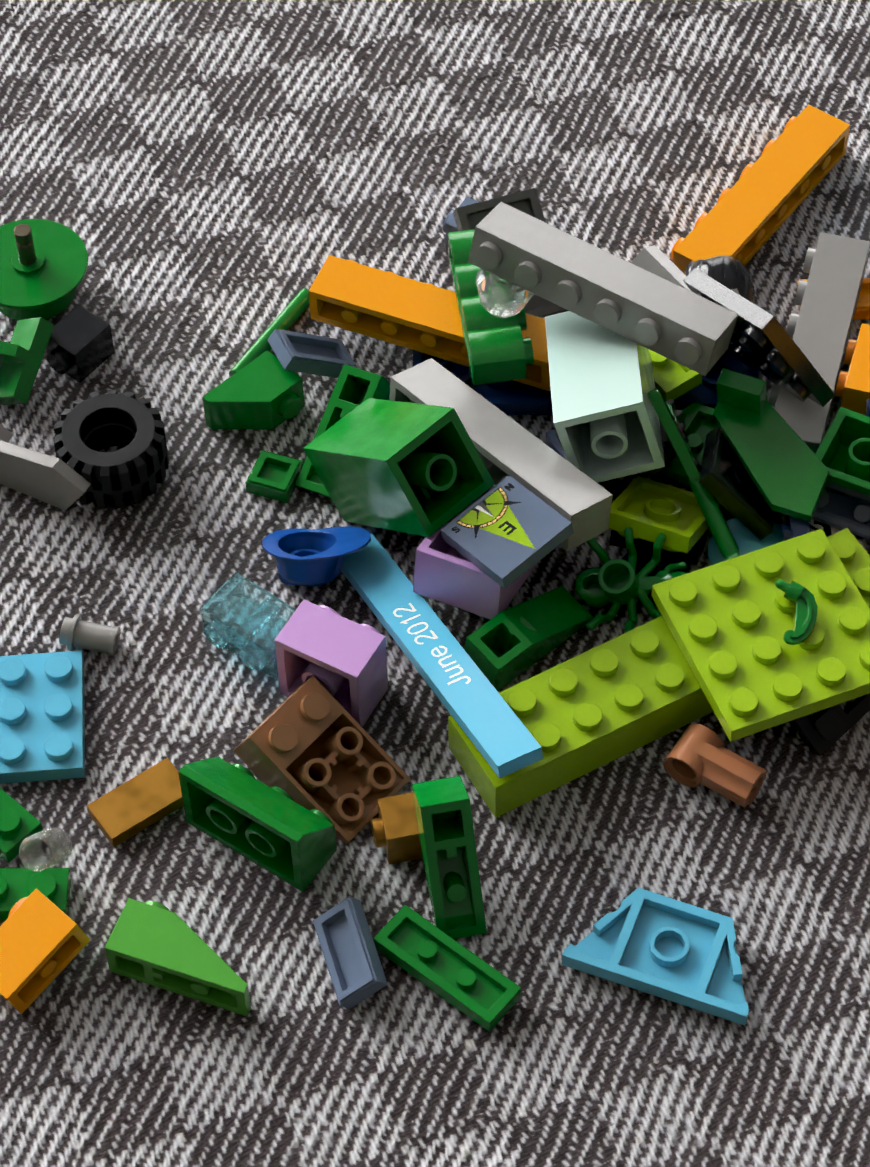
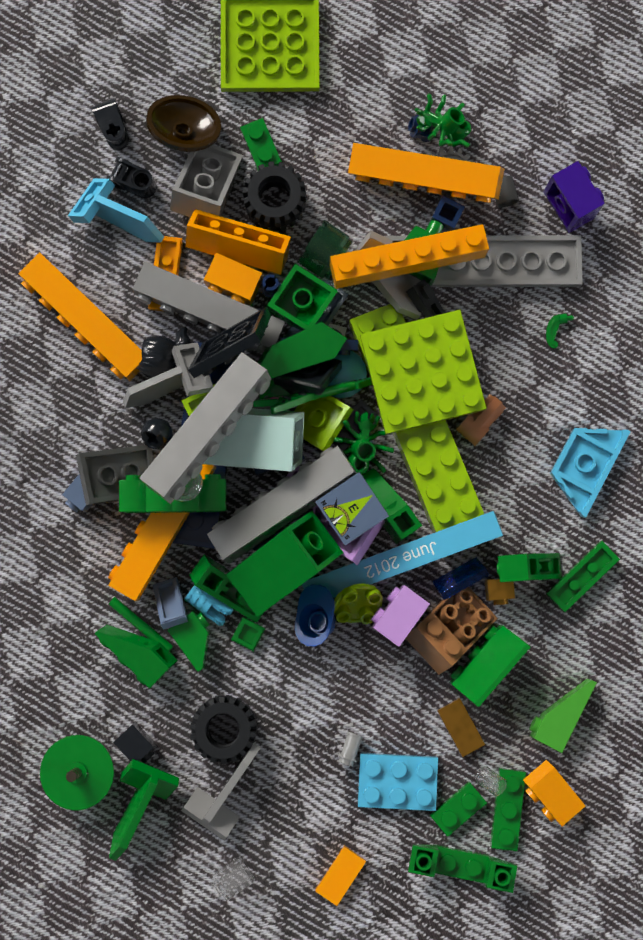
camera: 85 degrees left, 30 degrees up
(223, 330) = (142, 655): none -> green slope
(246, 622) = (358, 656): clear light blue brick -> none
(309, 414) = (208, 605): none -> medium azure hinge
(350, 592) = (357, 603): none -> lime dish
(350, 952) = (568, 625): sand blue tile -> none
(404, 753) = (460, 578): none -> clear blue tile
(804, 614) = (422, 354): green piece -> none

